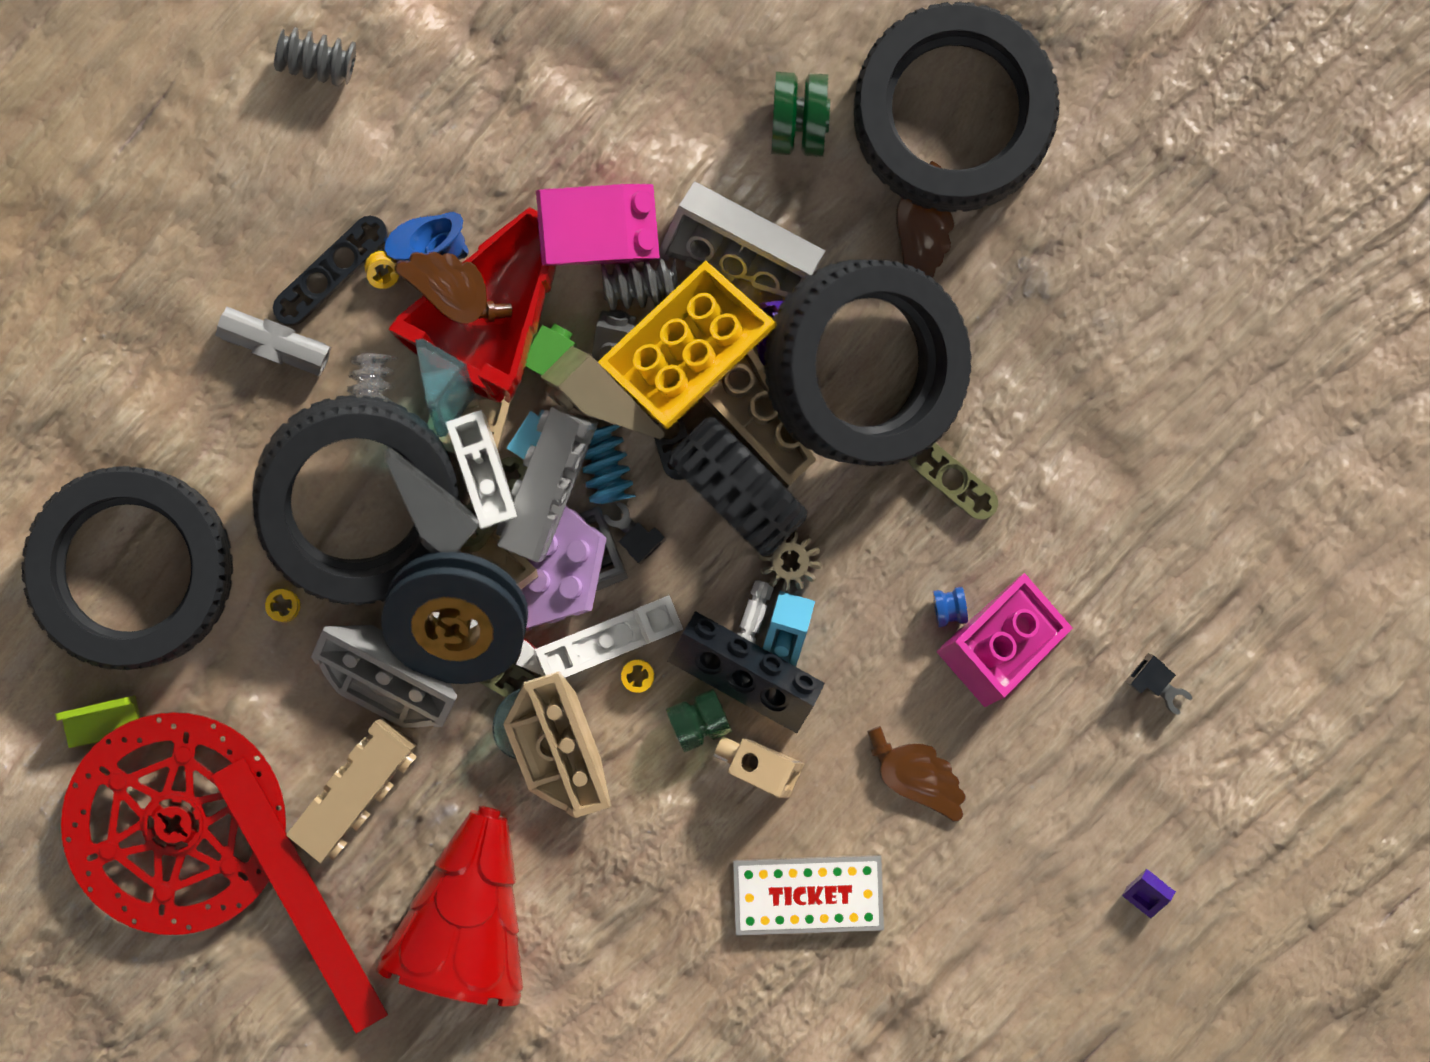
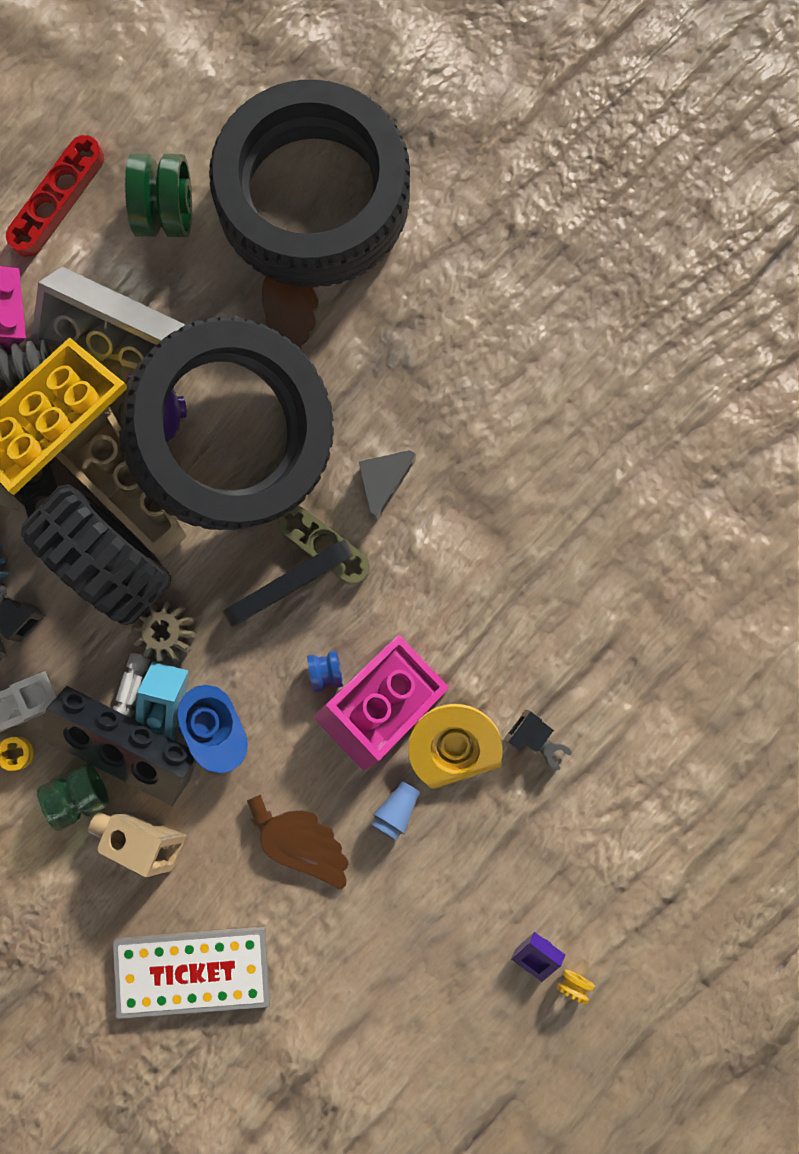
camera: 10 degrees left, 5 degrees down
(679, 97) = (49, 193): none -> red beam
(838, 659) = (212, 729): none -> blue piece
(917, 518) = (288, 583): none -> black beam
(1014, 415) = (383, 477): none -> dark grey slope
(1015, 748) = (396, 811): none -> medium blue cone
(1076, 685) = (454, 745): none -> yellow hat
(1183, 923) = (575, 985): none -> yellow bush

